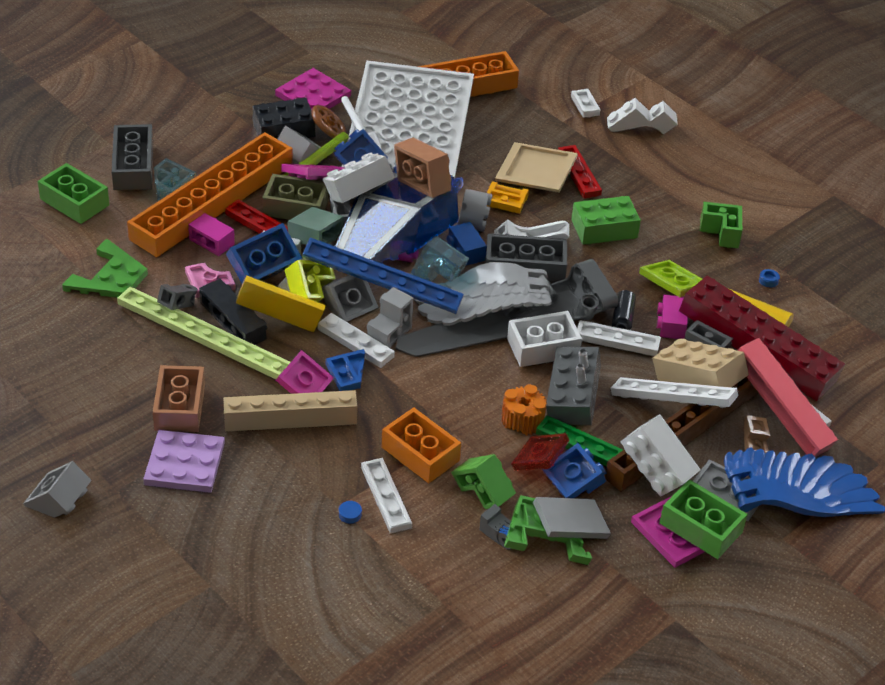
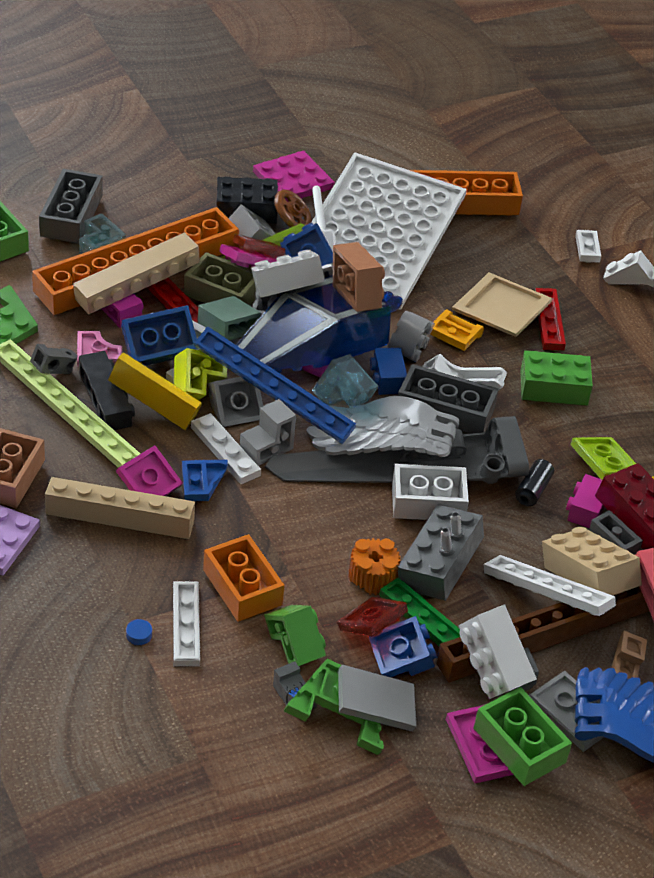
camera: 15 degrees right, 0 degrees up
(221, 204) = (136, 273): none -> tan brick
(316, 159) = (263, 247): none -> clear red plate
(619, 338) = (516, 510): white plate -> none

